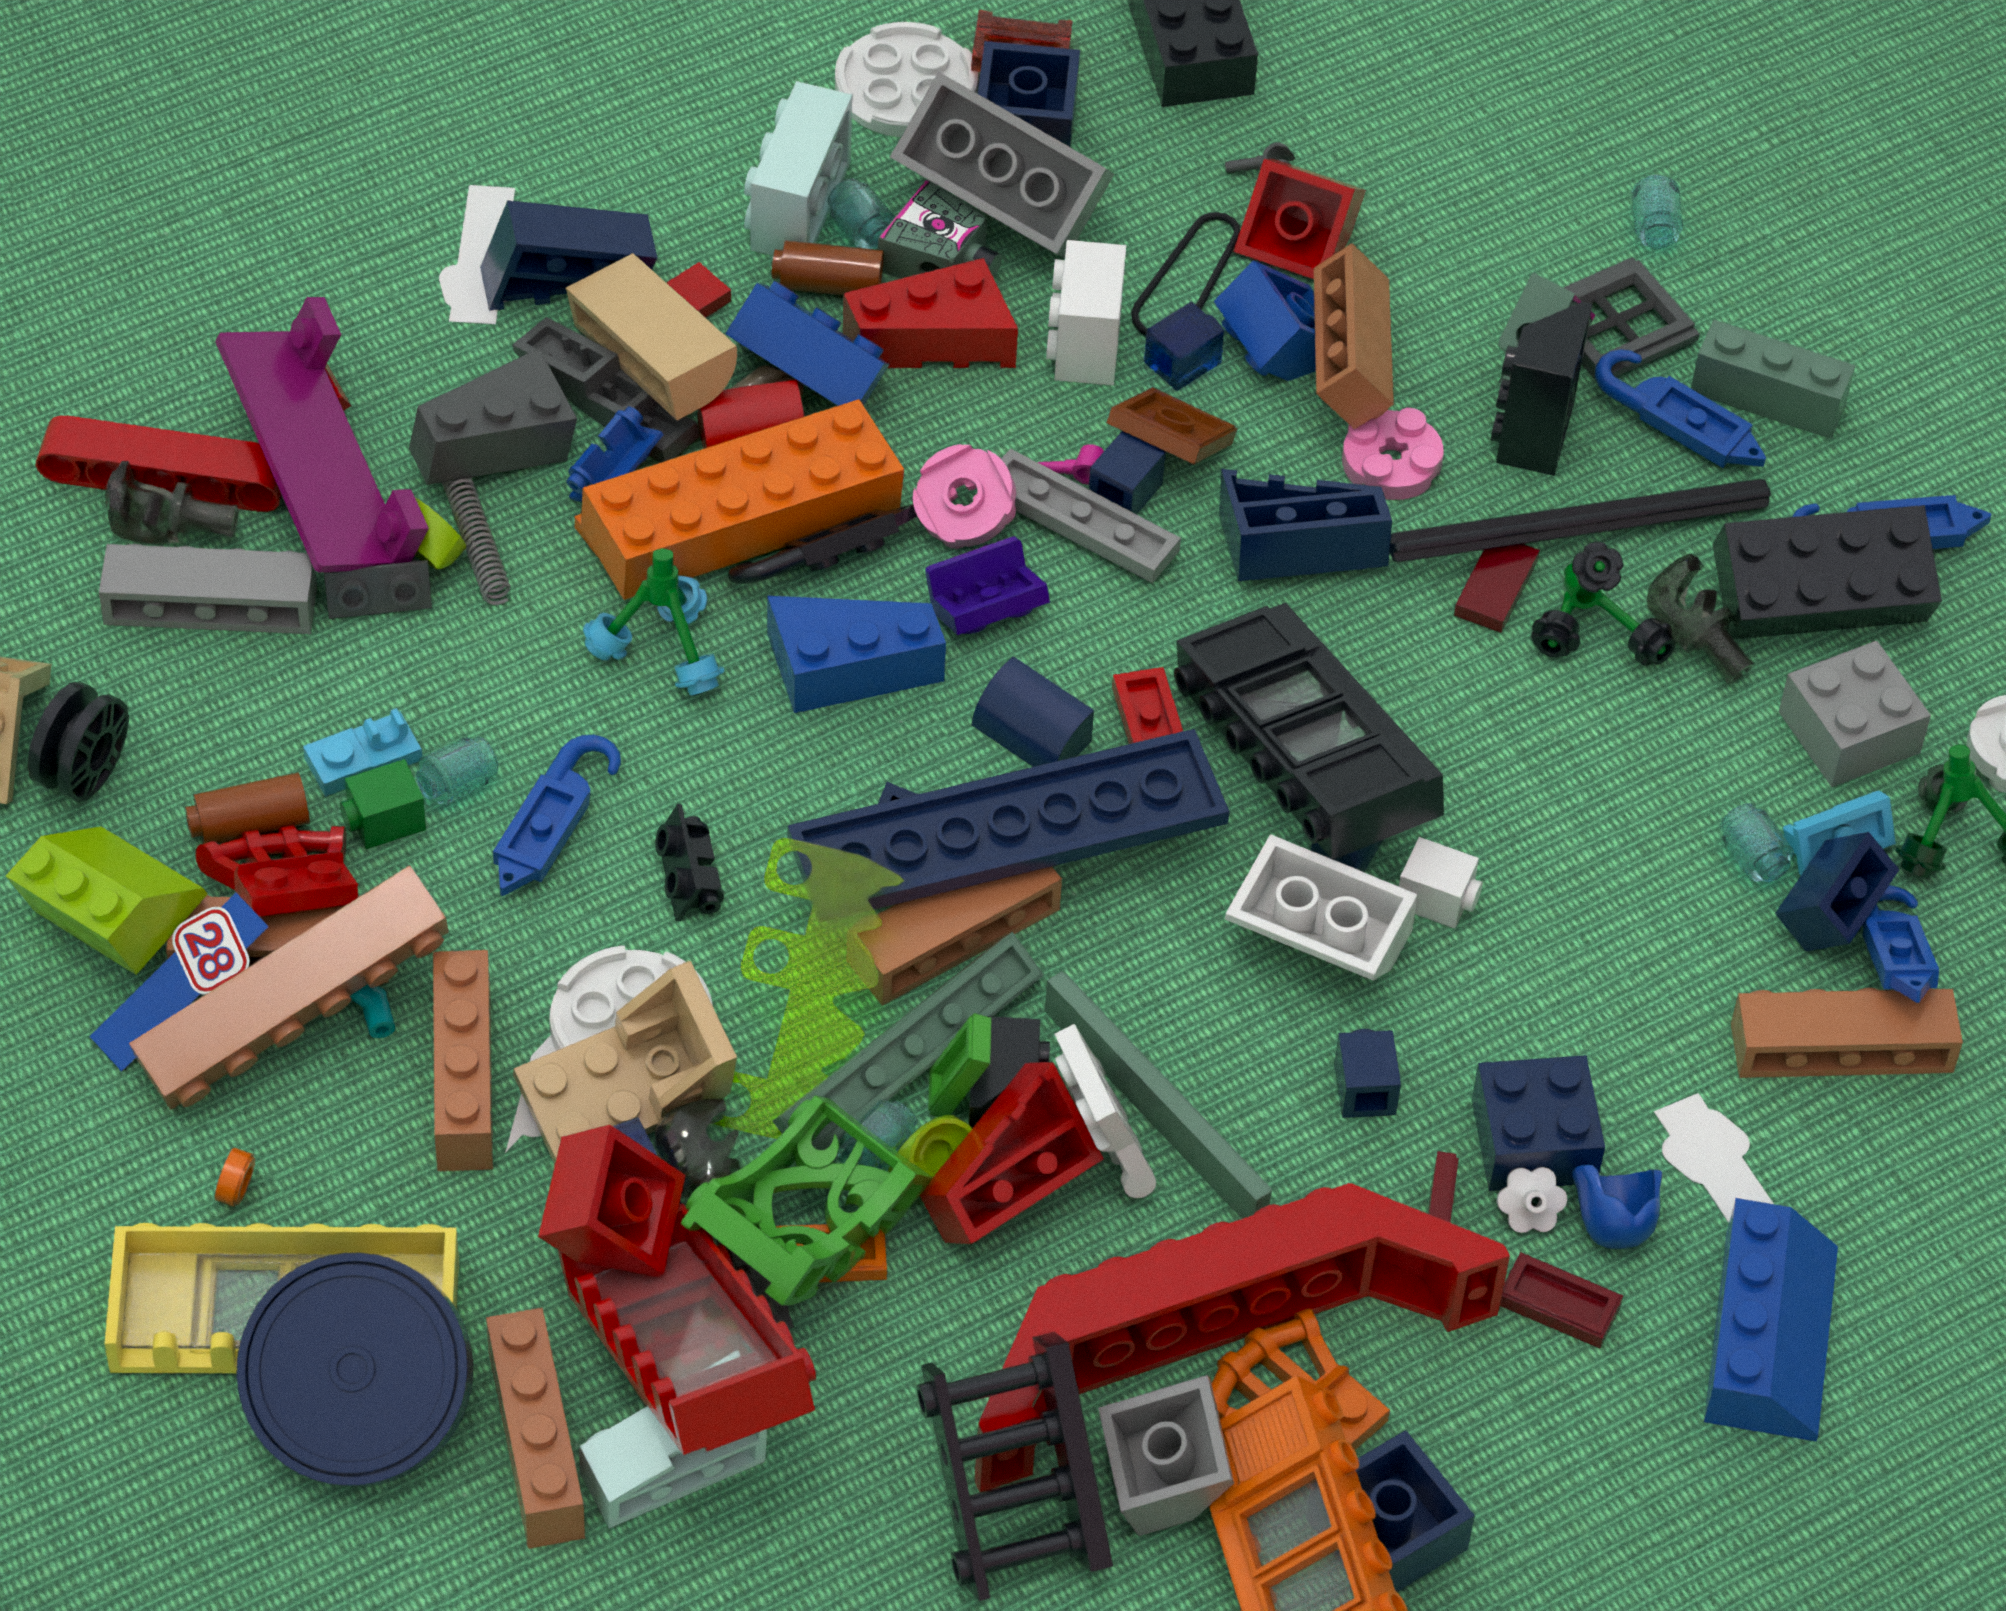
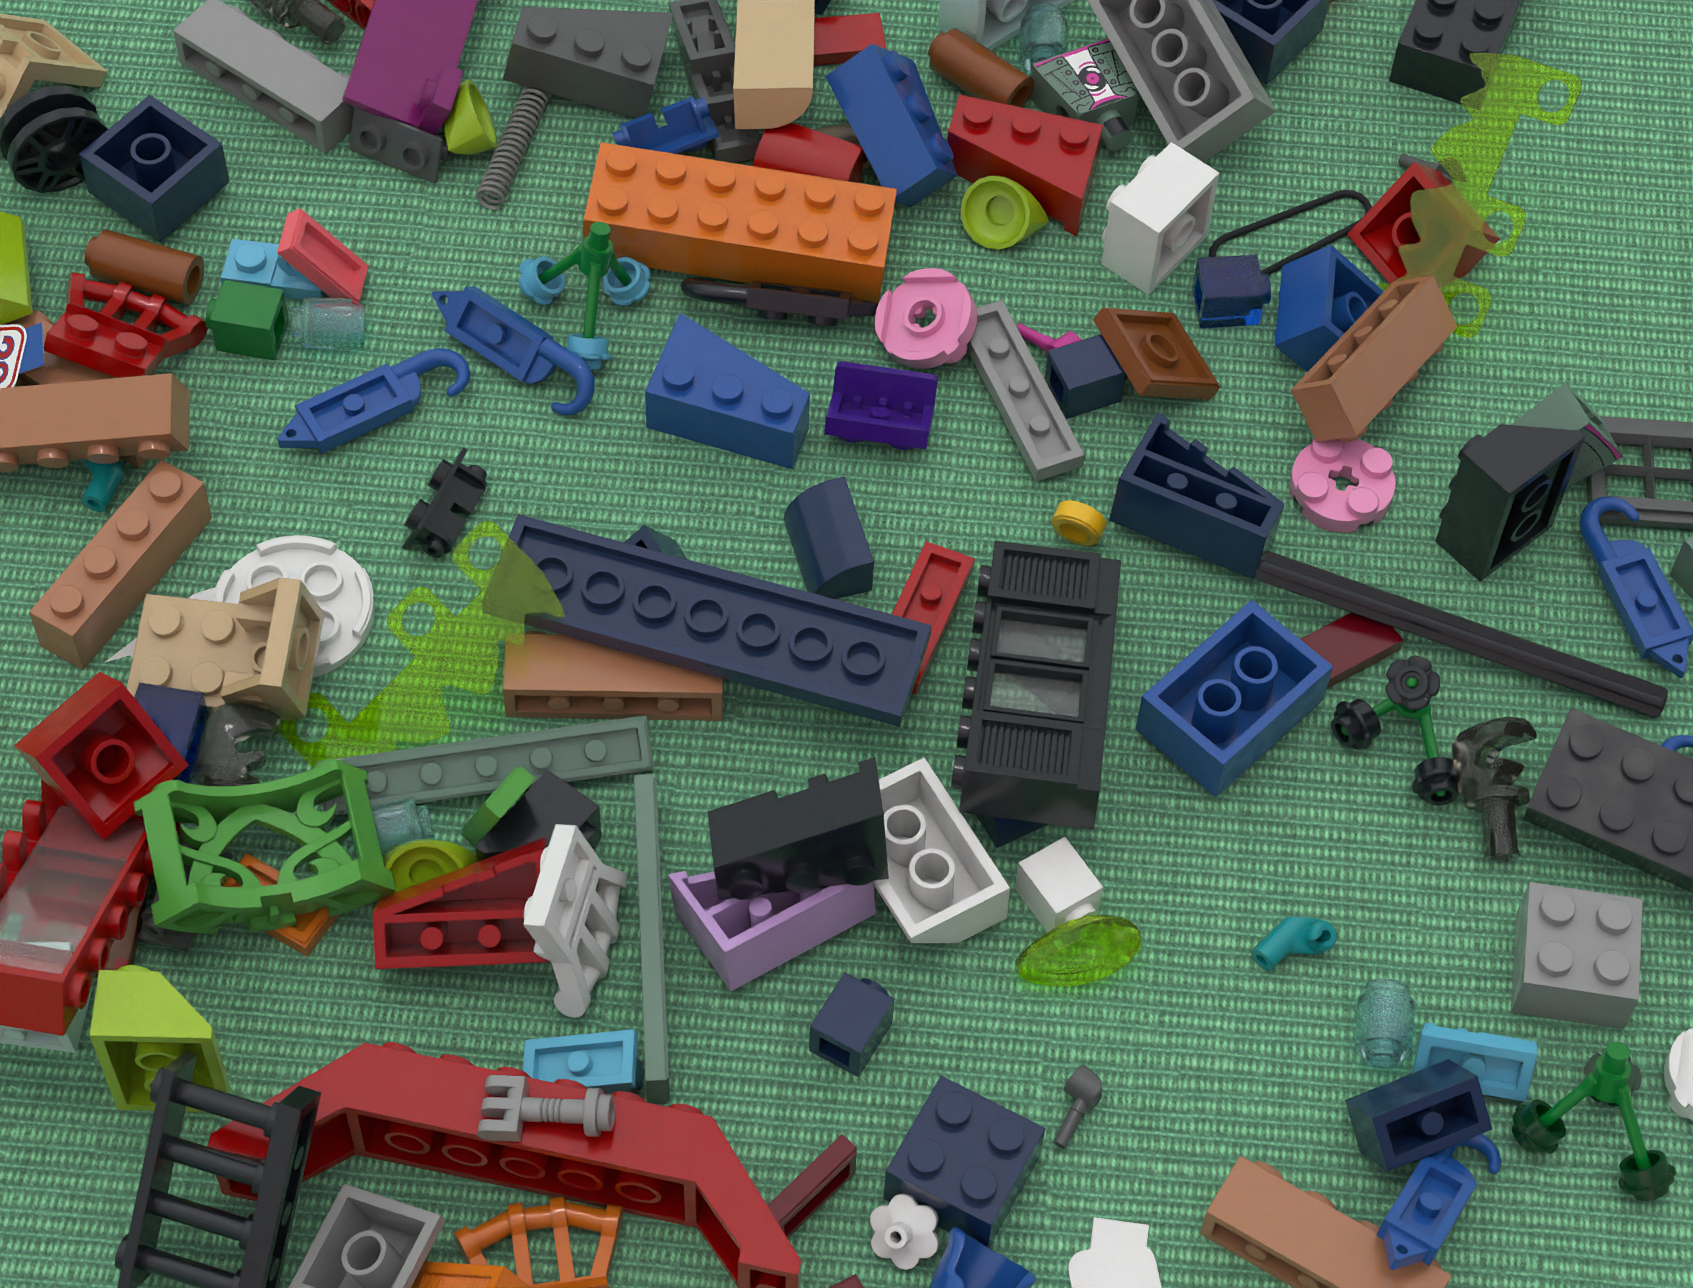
camera: 35 degrees right, 5 degrees up
(188, 719) = (154, 168): none -> dark blue brick
(412, 714) = (321, 257): none -> coral tile
(631, 700) = (513, 342): none -> blue plate
(866, 1391) = (146, 1026): none -> lime slope
(944, 378) = (1000, 213): none -> lime piece
(1189, 1213) = (591, 1059): none -> medium azure plate
(1218, 595) = (1078, 523): none -> yellow tile
(1238, 1022) = (763, 932): none -> lavender wedge
(1246, 941) = (802, 839): none -> black wedge
(1268, 1226) = (594, 1112): none -> light grey hinge
(1317, 126) = (1471, 155): none -> clear neon green piece
(1455, 662) = (1233, 698): none -> blue brick
(1491, 921) = (1080, 951): none -> clear neon green arm
(1577, 1020) = (1087, 1091): none -> dark grey hand
(1638, 819) = (1294, 936): none -> teal arm

